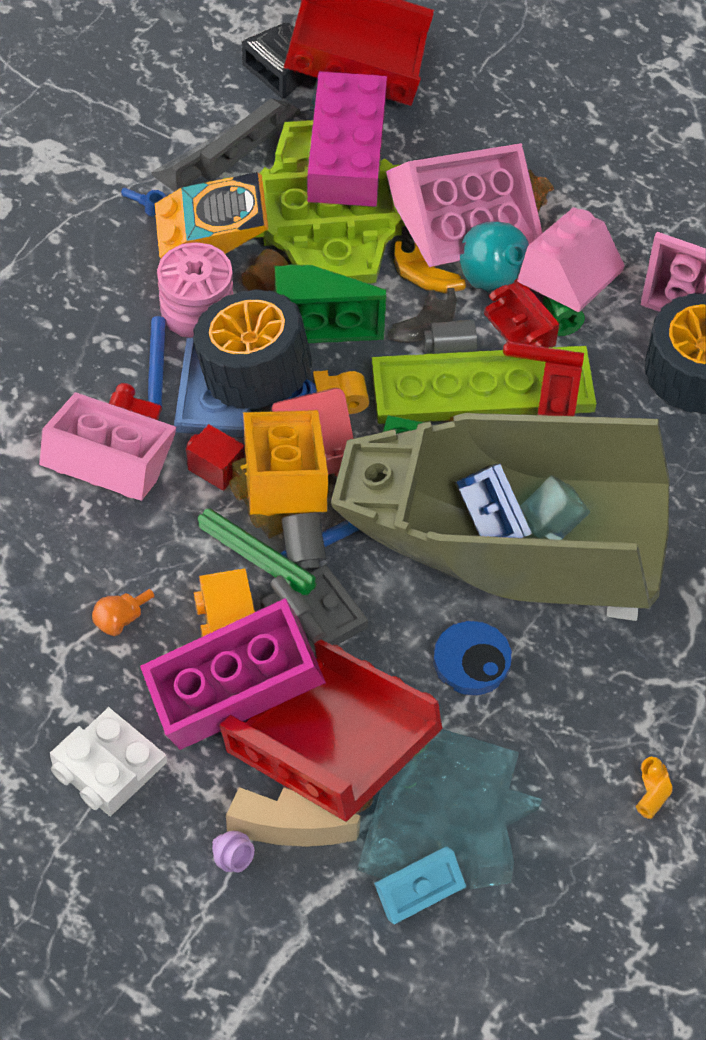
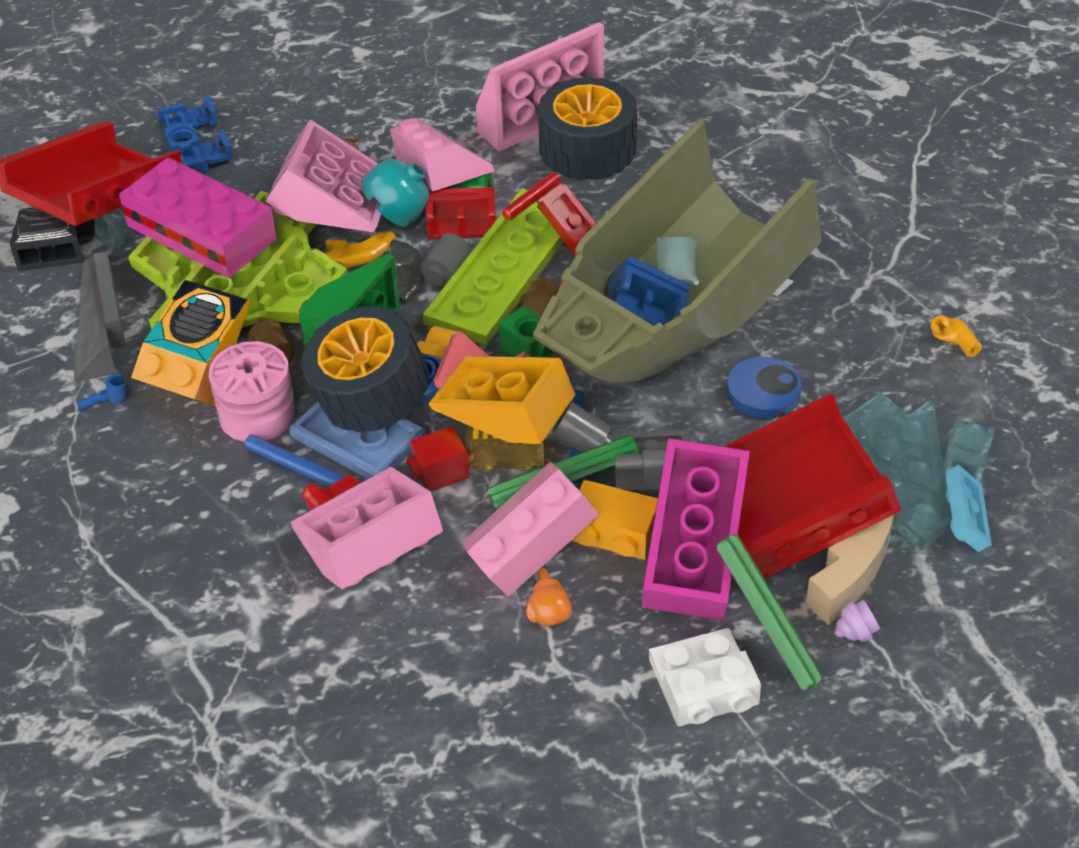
camera: 55 degrees left, 10 degrees down
(165, 556) = (529, 529): none -> bright pink slope
(179, 772) = (769, 612): none -> axle
(462, 91) = (184, 127): none -> blue piece

